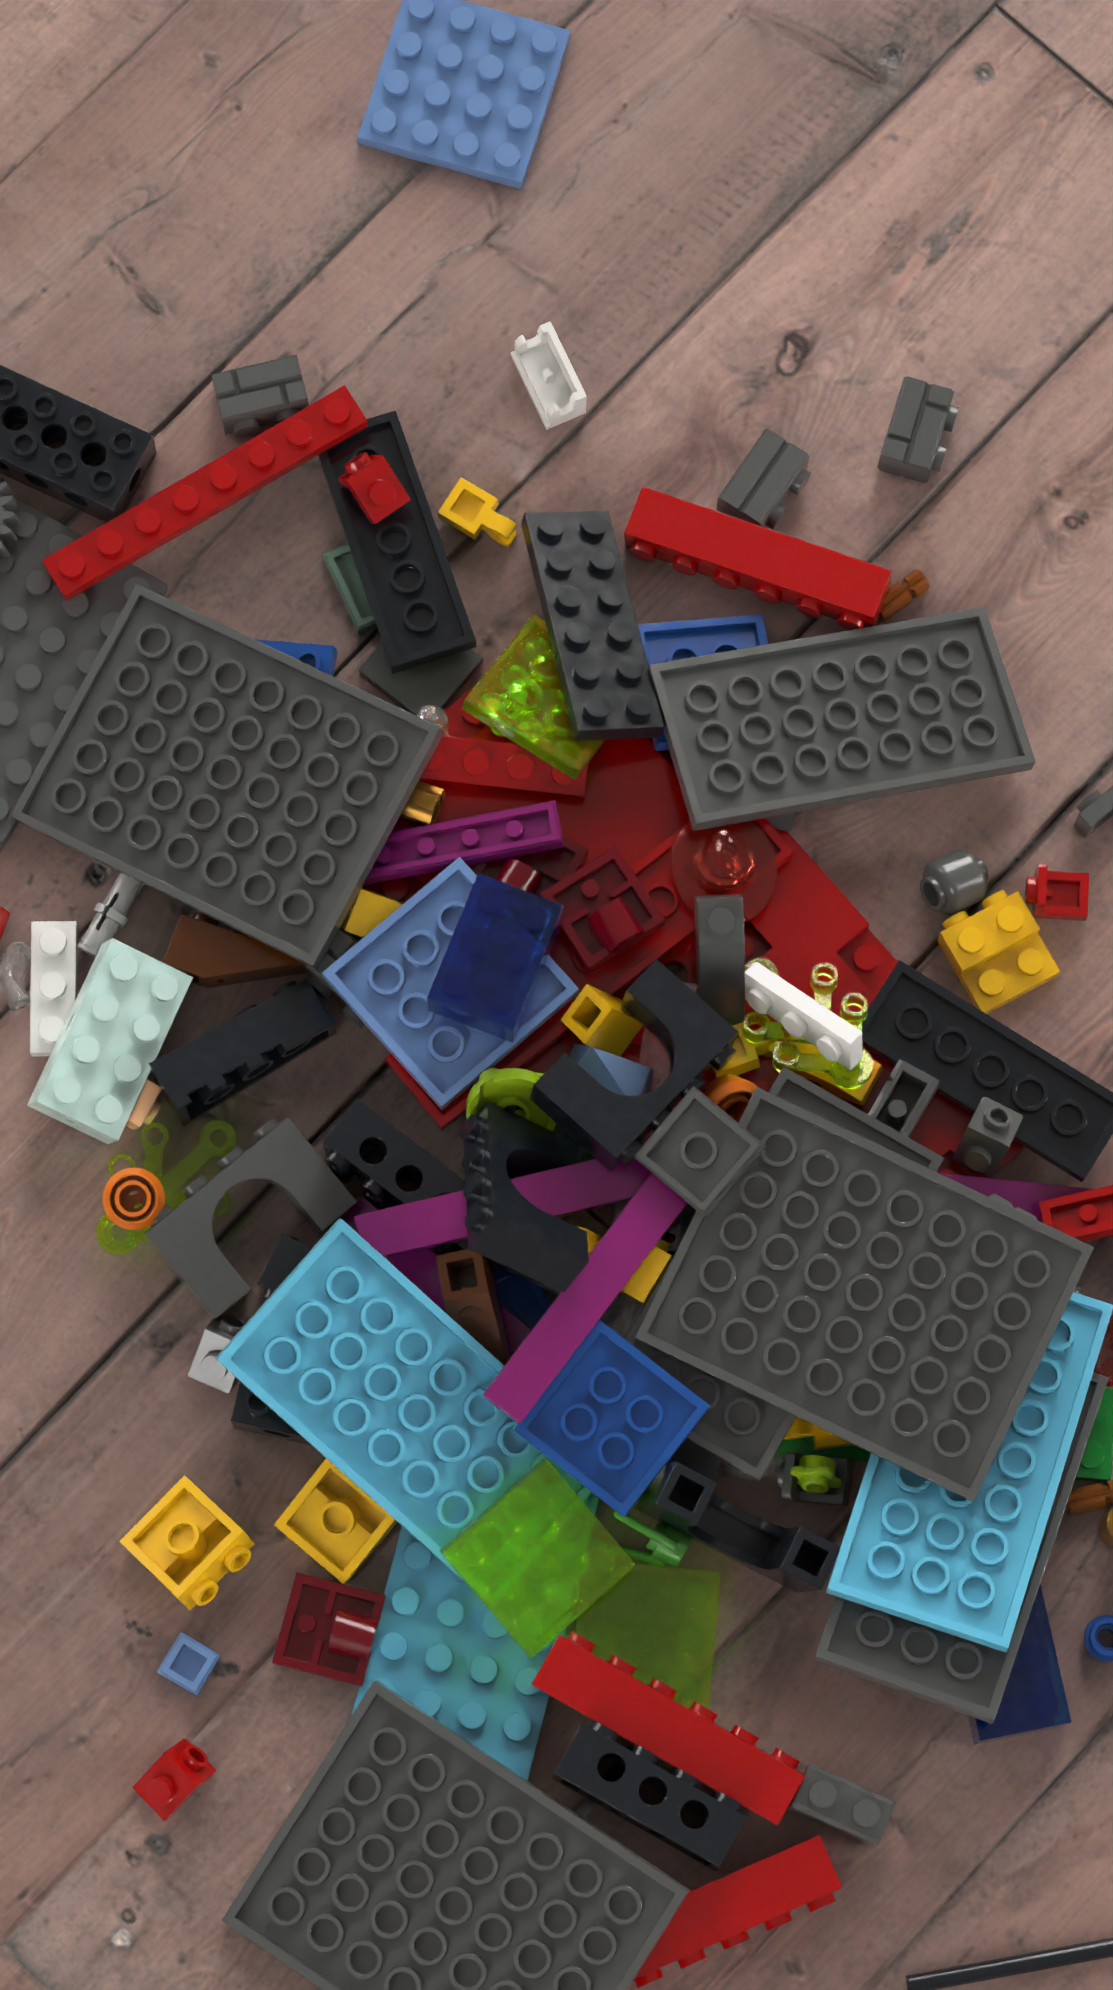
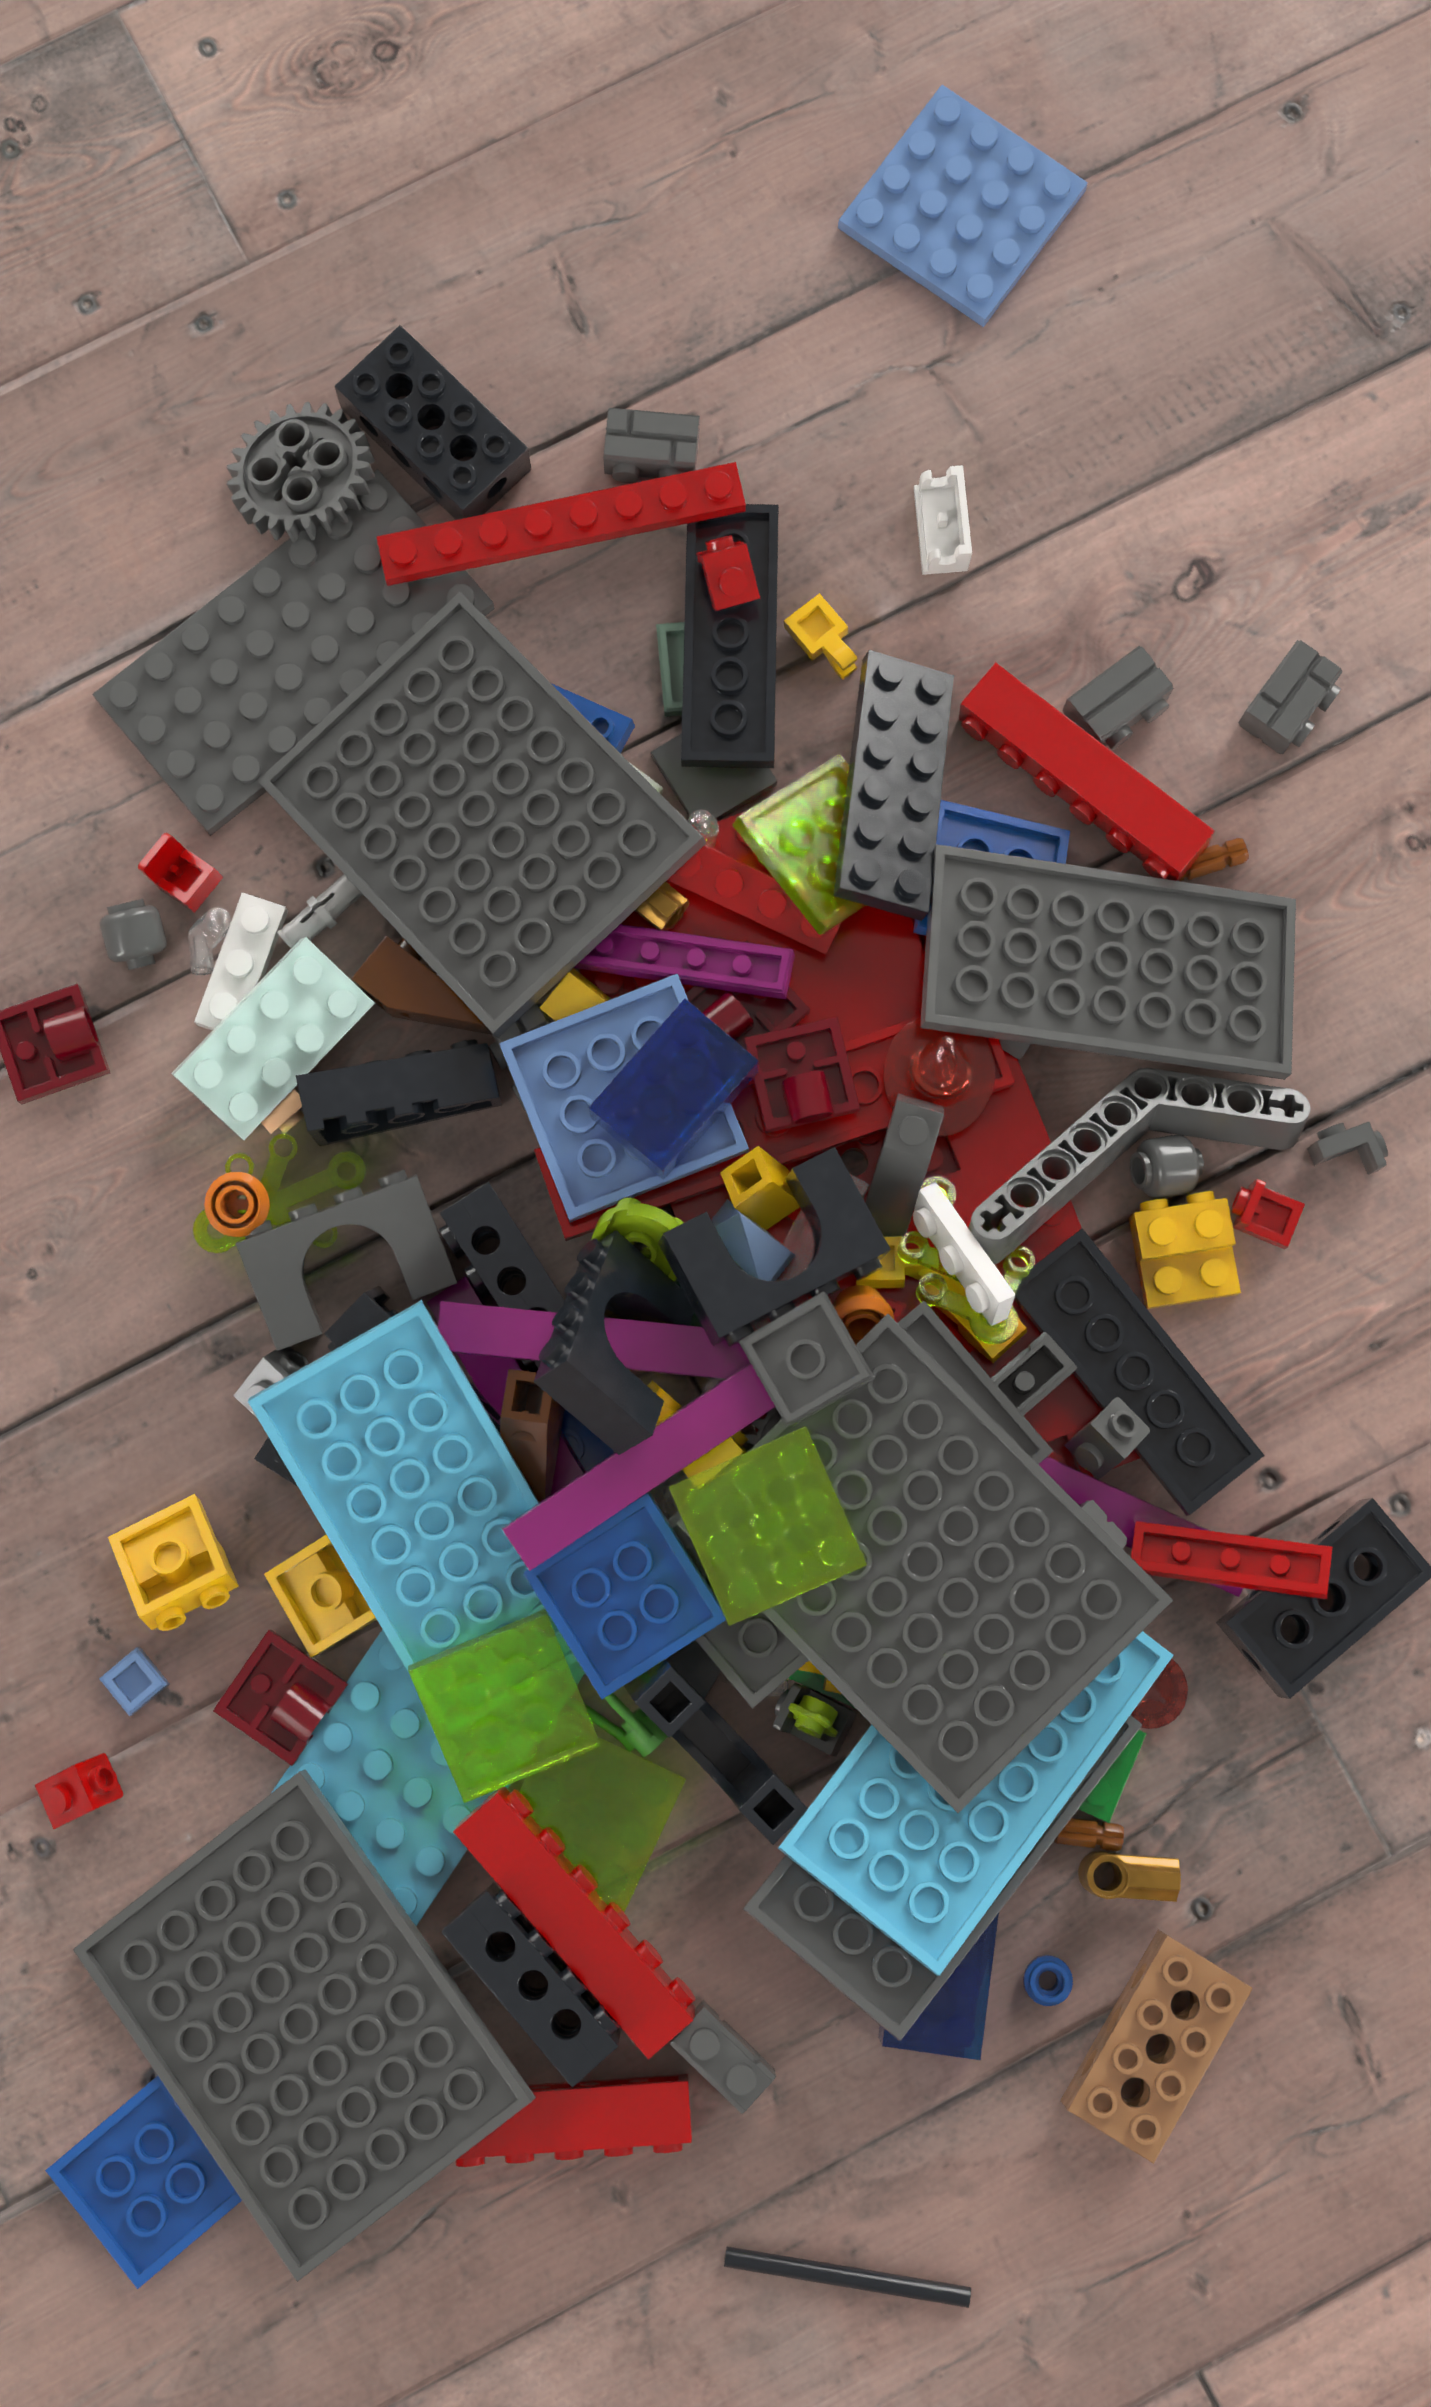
camera: 20 degrees right, 5 degrees up
(717, 1307) = (768, 1525): none -> clear neon green plate
(911, 834) = (1140, 1103): none -> dark grey beam

